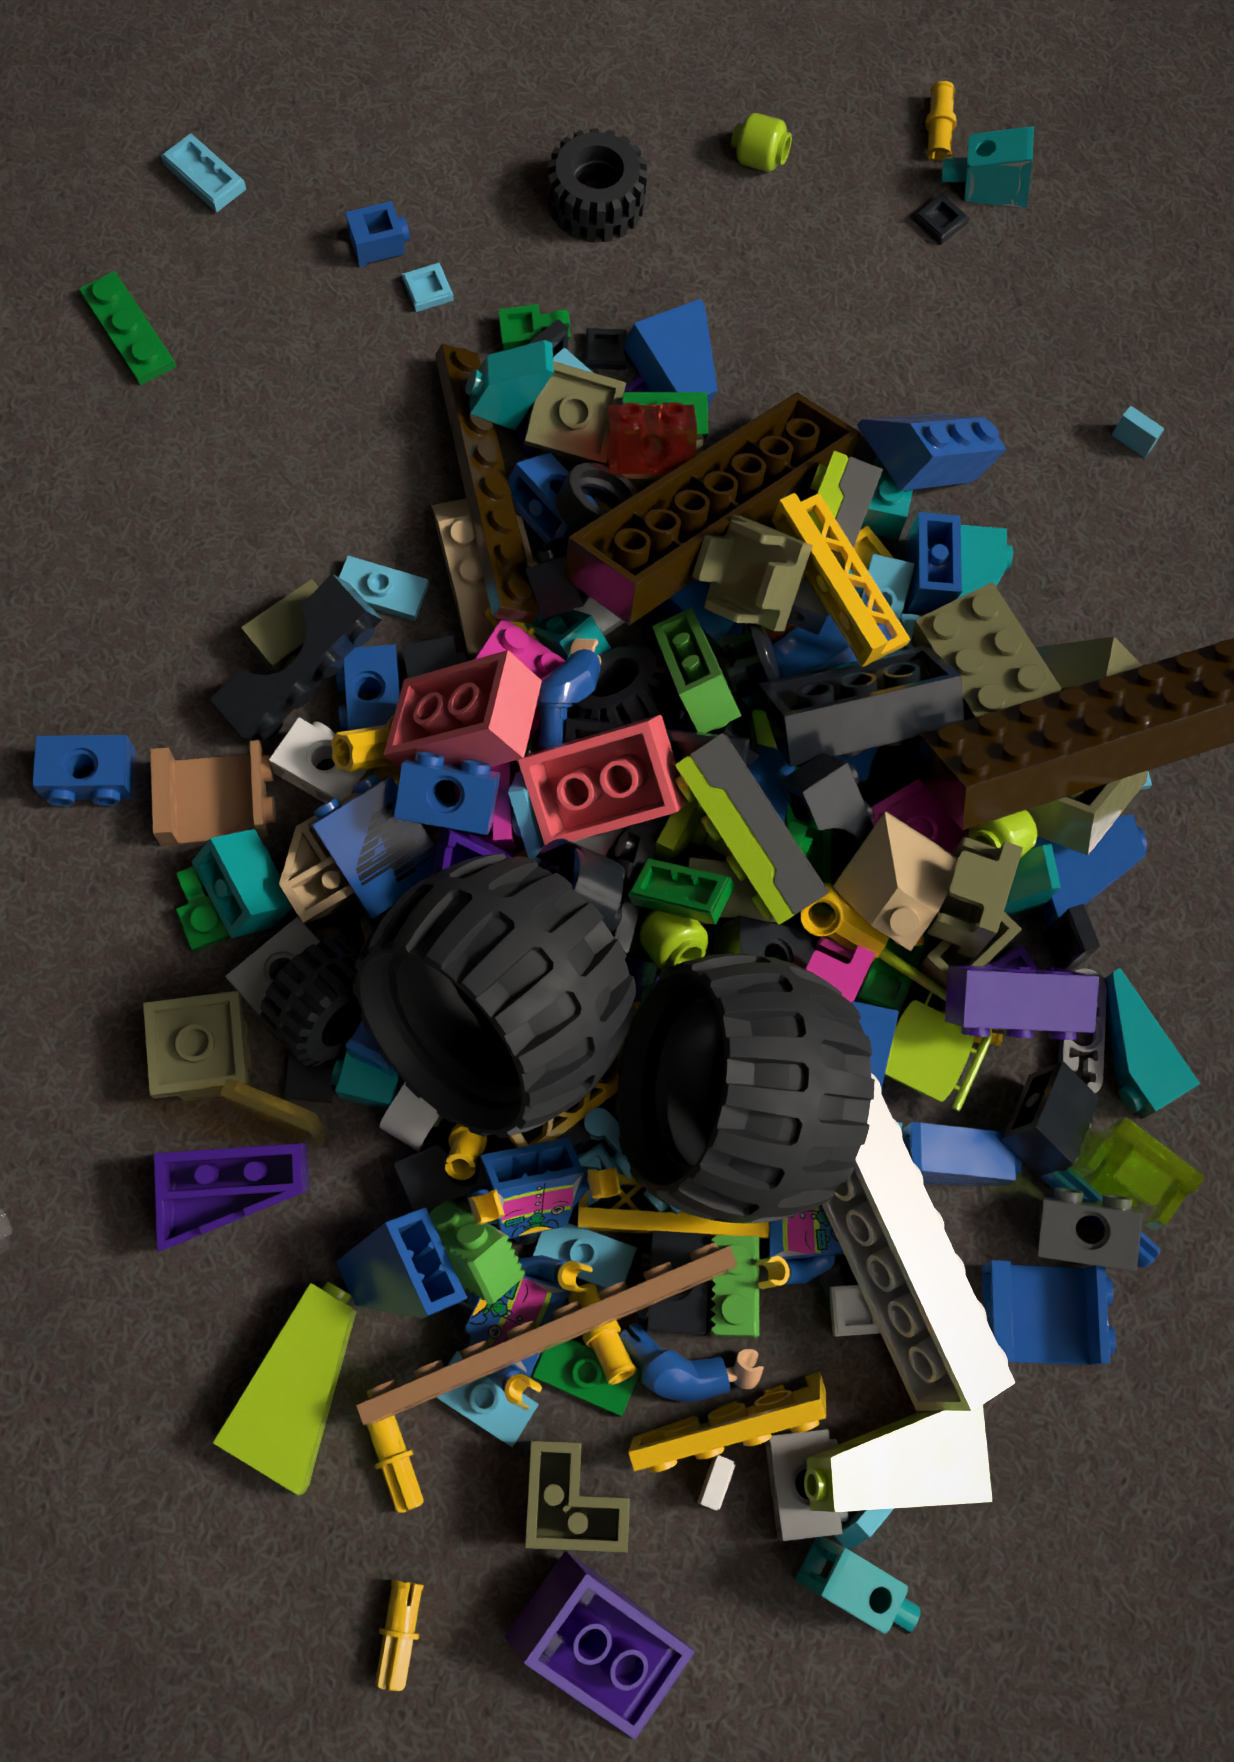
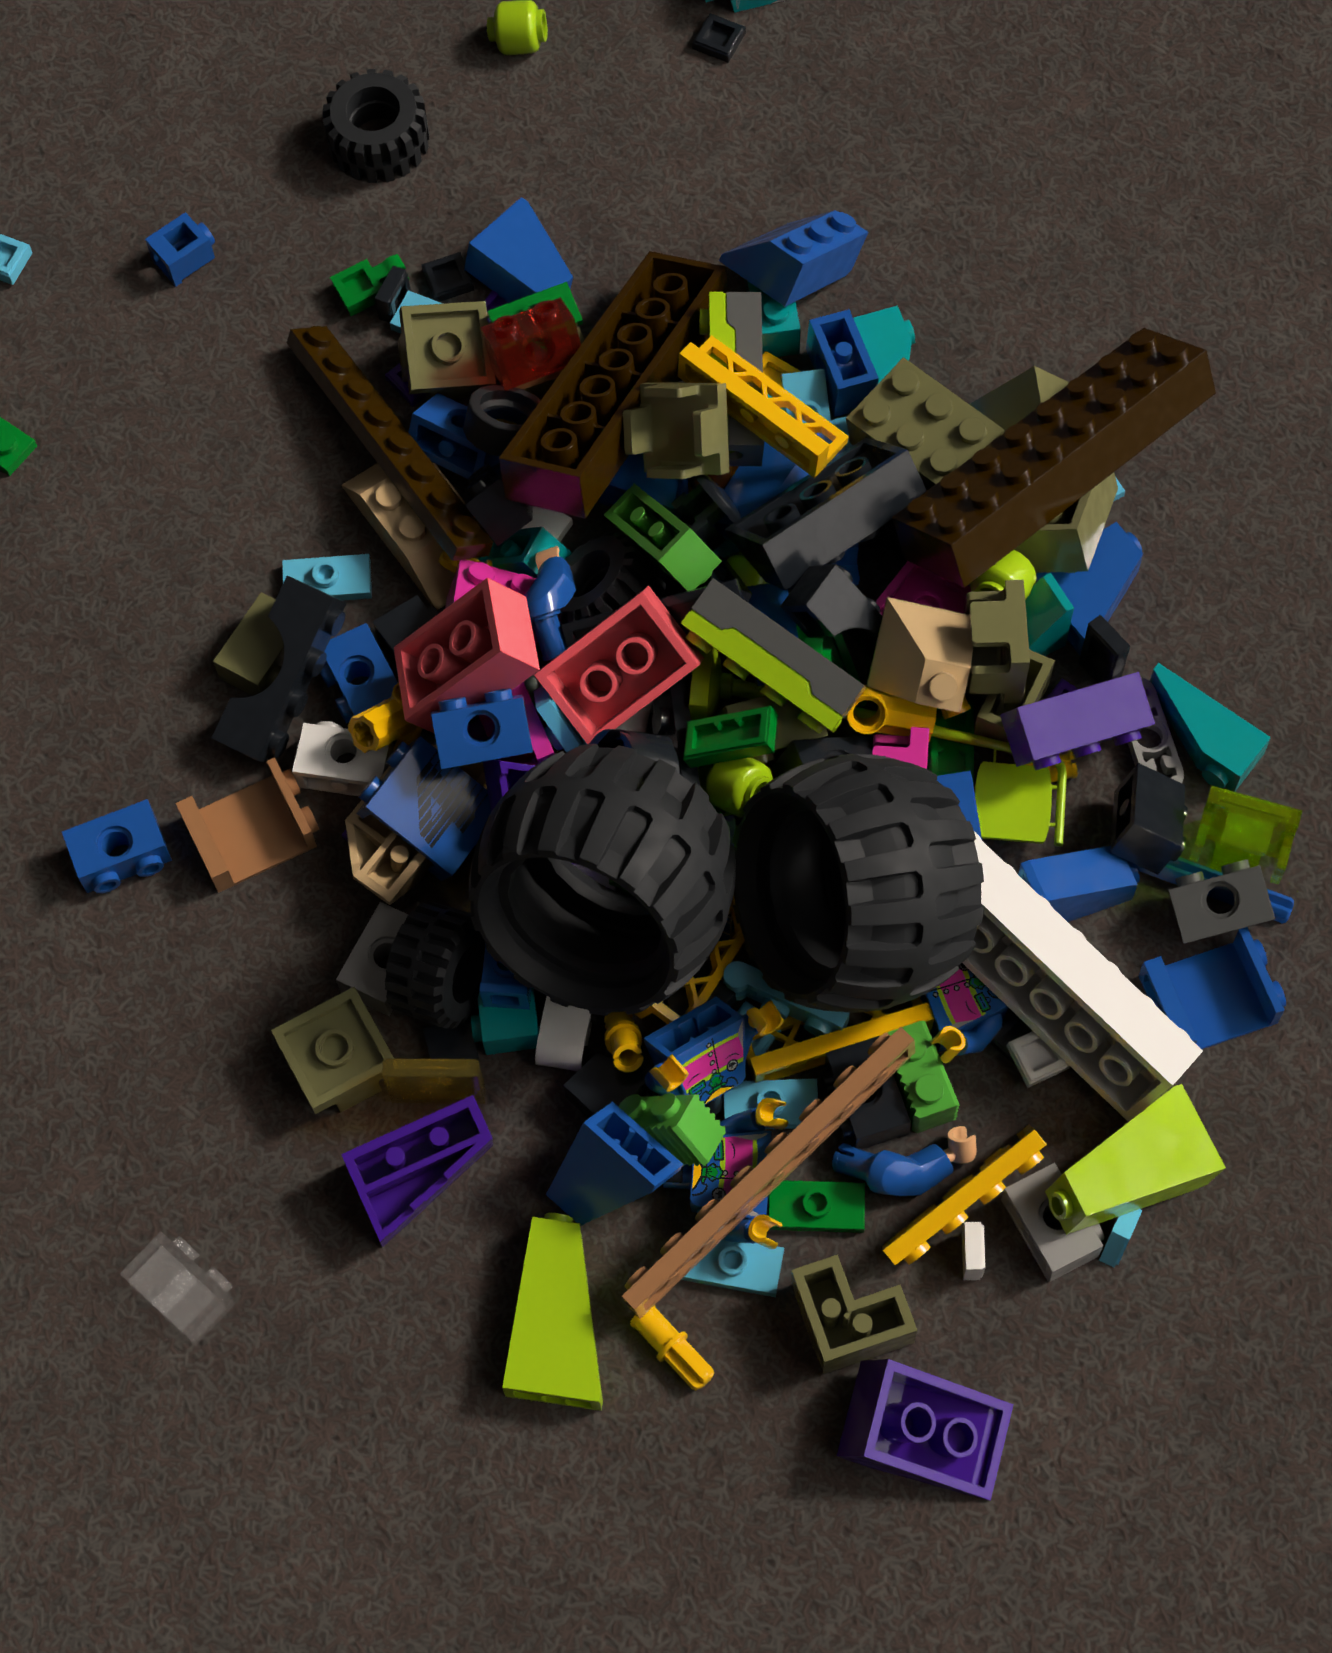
camera: 10 degrees left, 5 degrees down
(200, 916) = (288, 940): green plate -> none
(242, 882) = (314, 892): teal brick -> none
(398, 1635) = (740, 1492): yellow axle -> none
(427, 287) = (250, 281): medium azure tile -> none
(510, 383) = (376, 341): teal slope -> none
(605, 1341) = (827, 1171): yellow pin -> none
(858, 1587) = (1126, 1287): teal torso -> none
(1137, 431) = (985, 171): medium azure tile -> none

